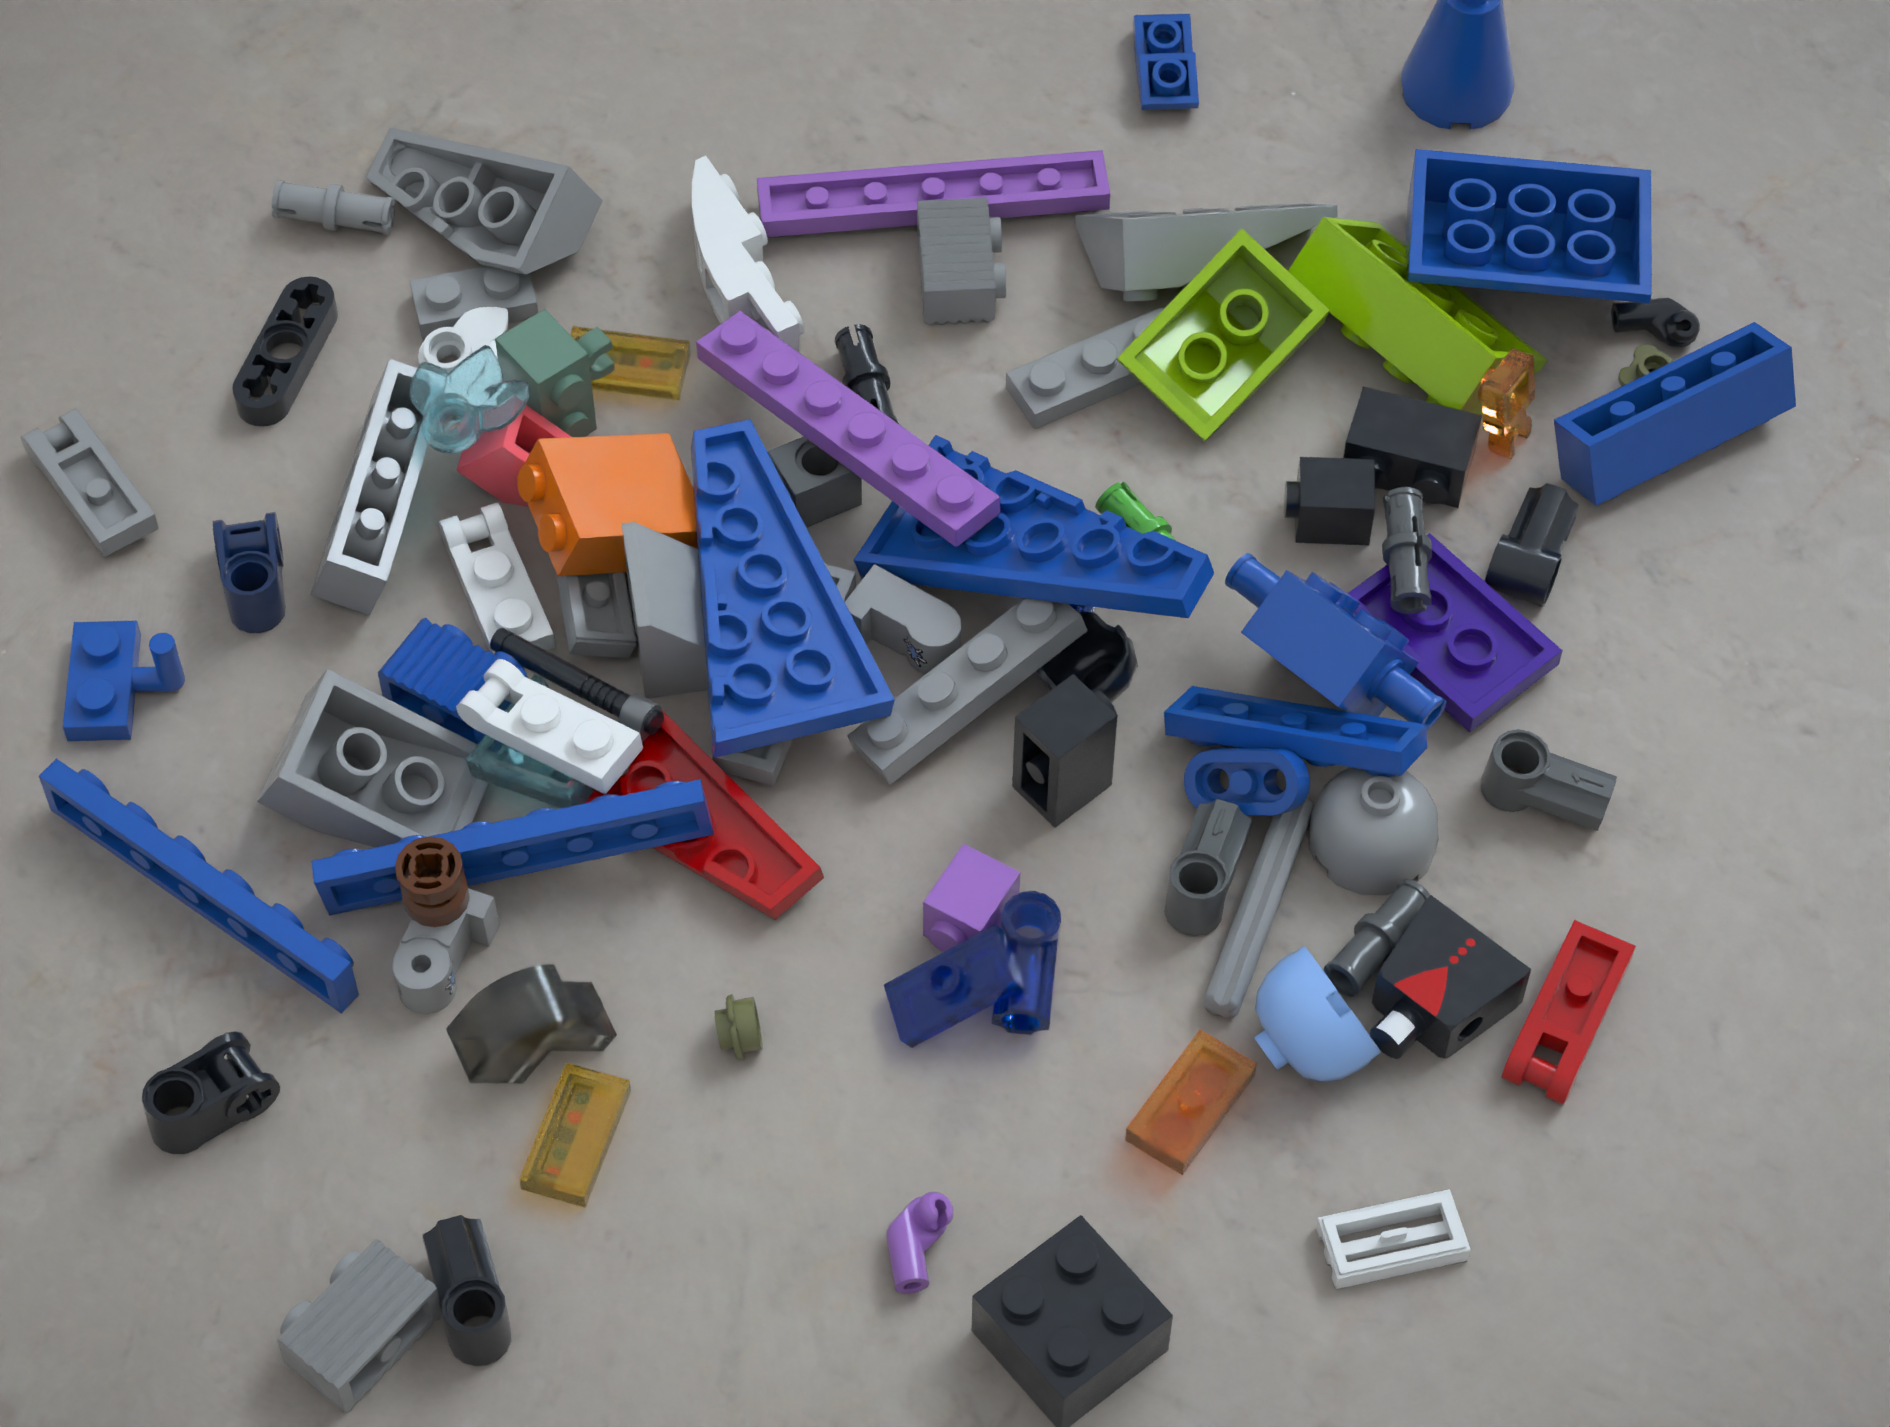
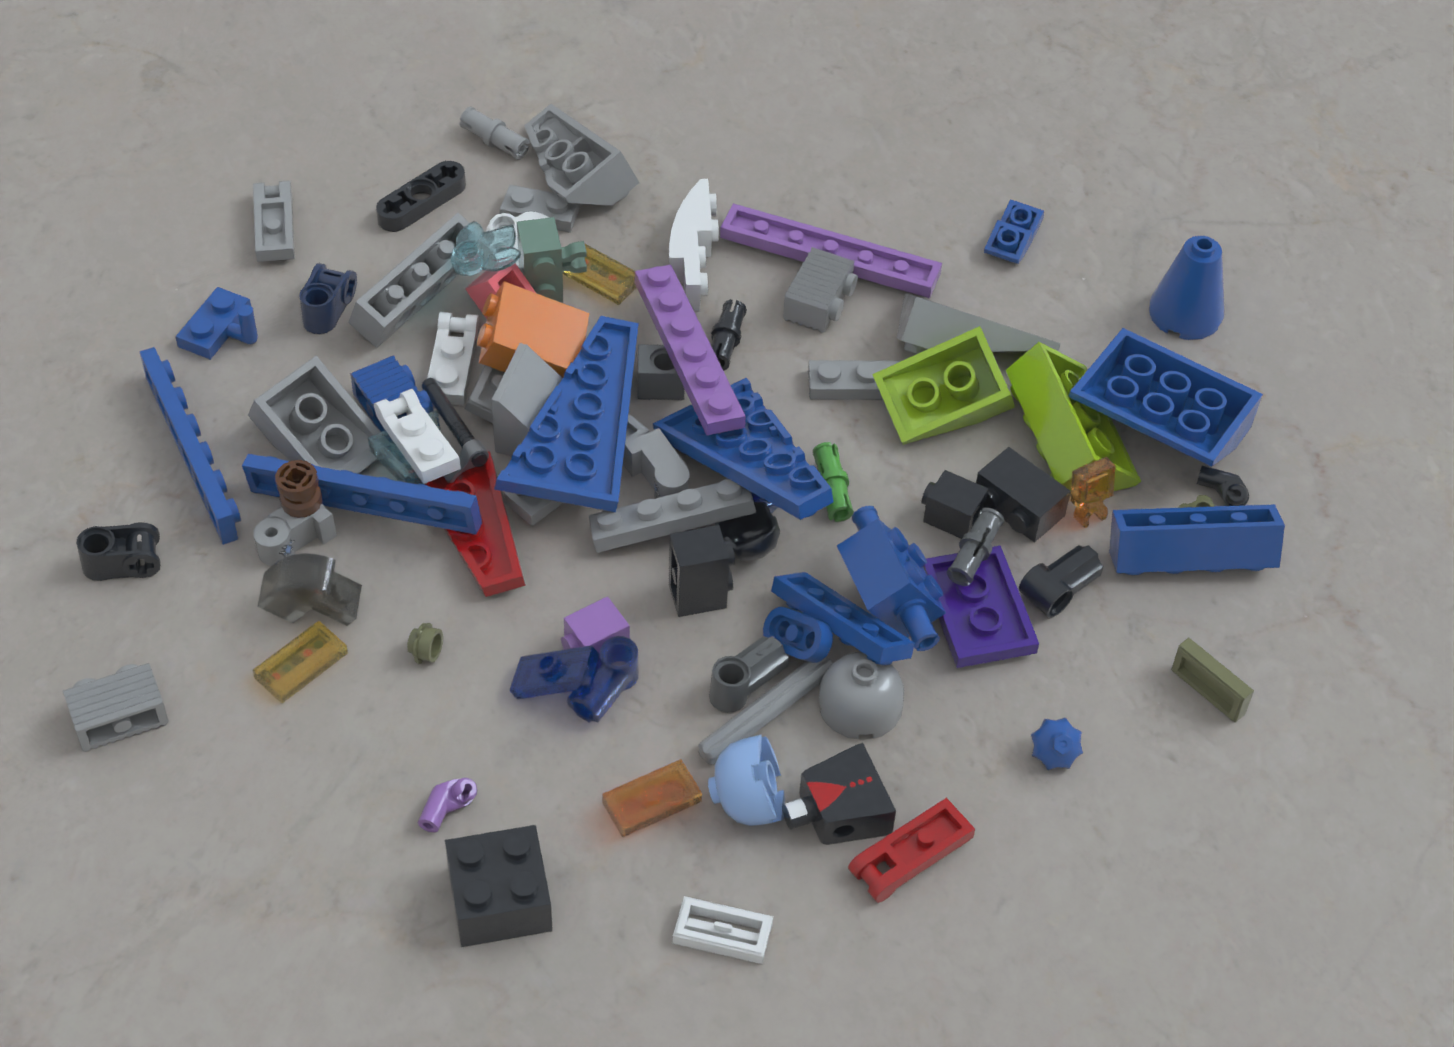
camera: 25 degrees right, 5 degrees down
(468, 1289) = (183, 716): black piece -> none
(1375, 938) = (795, 764): dark grey pin -> none
(1547, 781) = (982, 714): dark grey piece -> none
(1664, 779) = (1056, 743): none -> blue piece
(1804, 601) = (1212, 680): none -> olive tile

